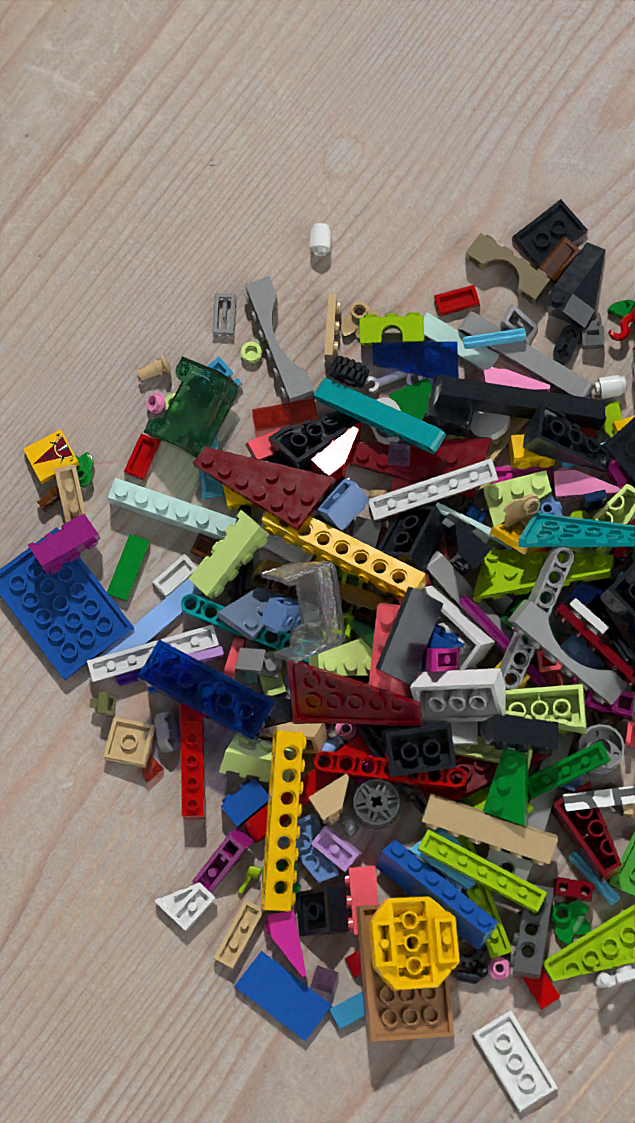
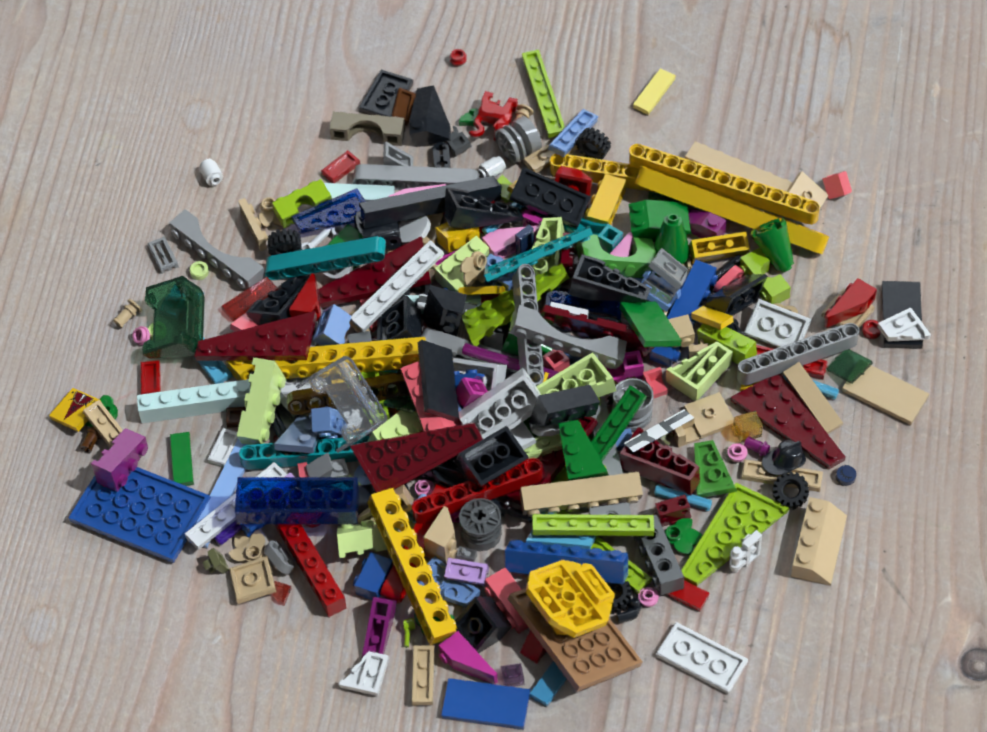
camera: 30 degrees left, 20 degrees down
(142, 701) = (246, 547): none -> tan plate
(399, 453) = (356, 274): clear purple tile -> none
(494, 338) = (384, 172): medium azure axle -> none

